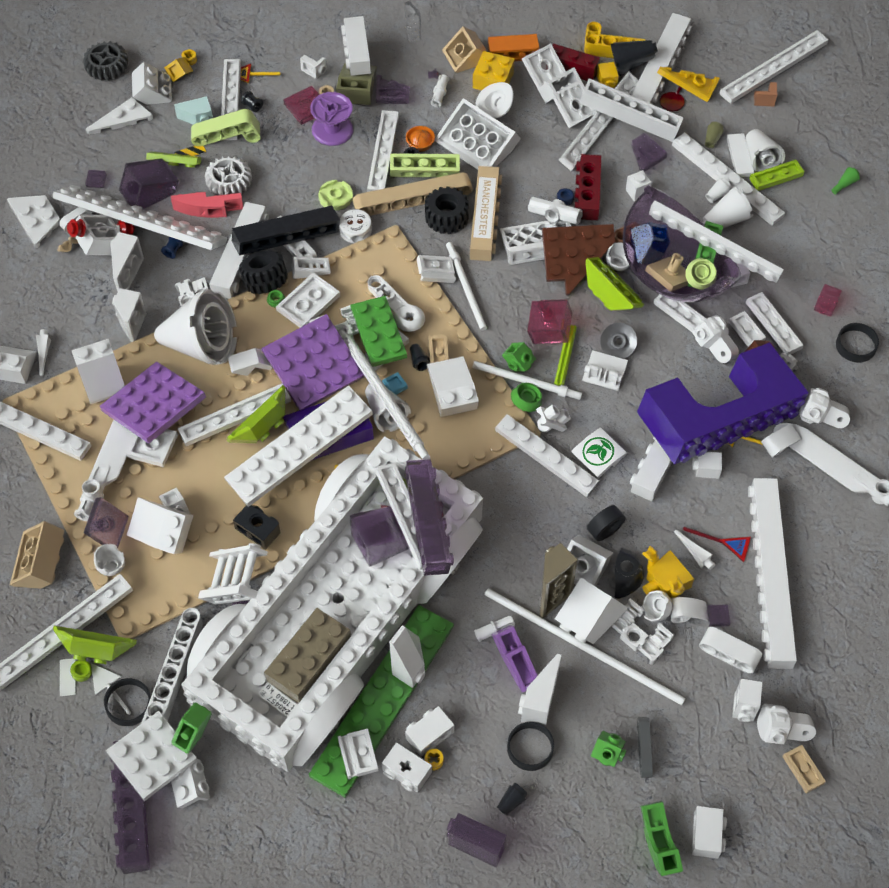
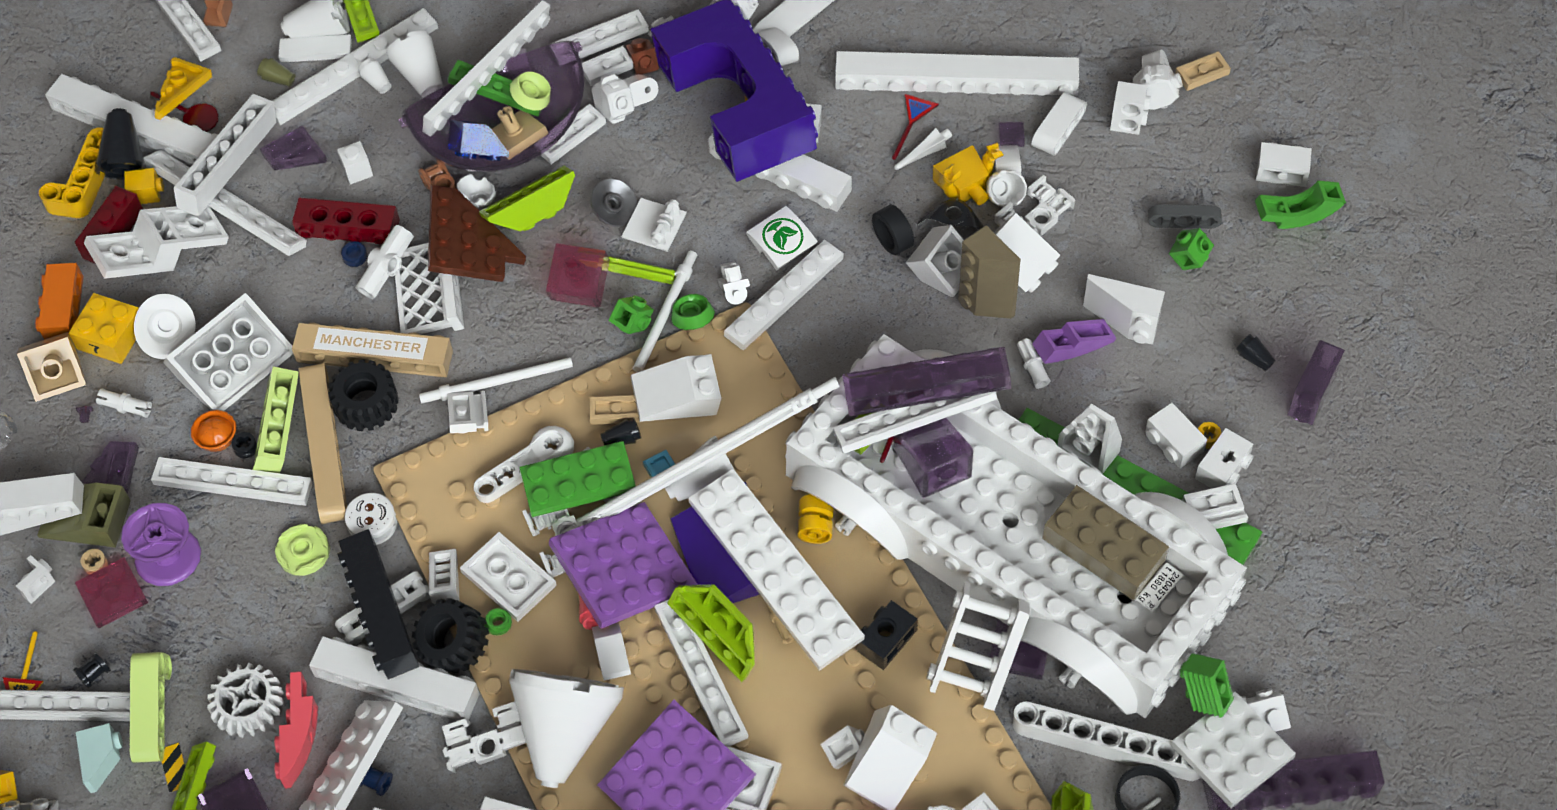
camera: 85 degrees left, 0 degrees up
(533, 725) = (1192, 310): black tyre -> none
(585, 647) = (1062, 260): white piece -> none

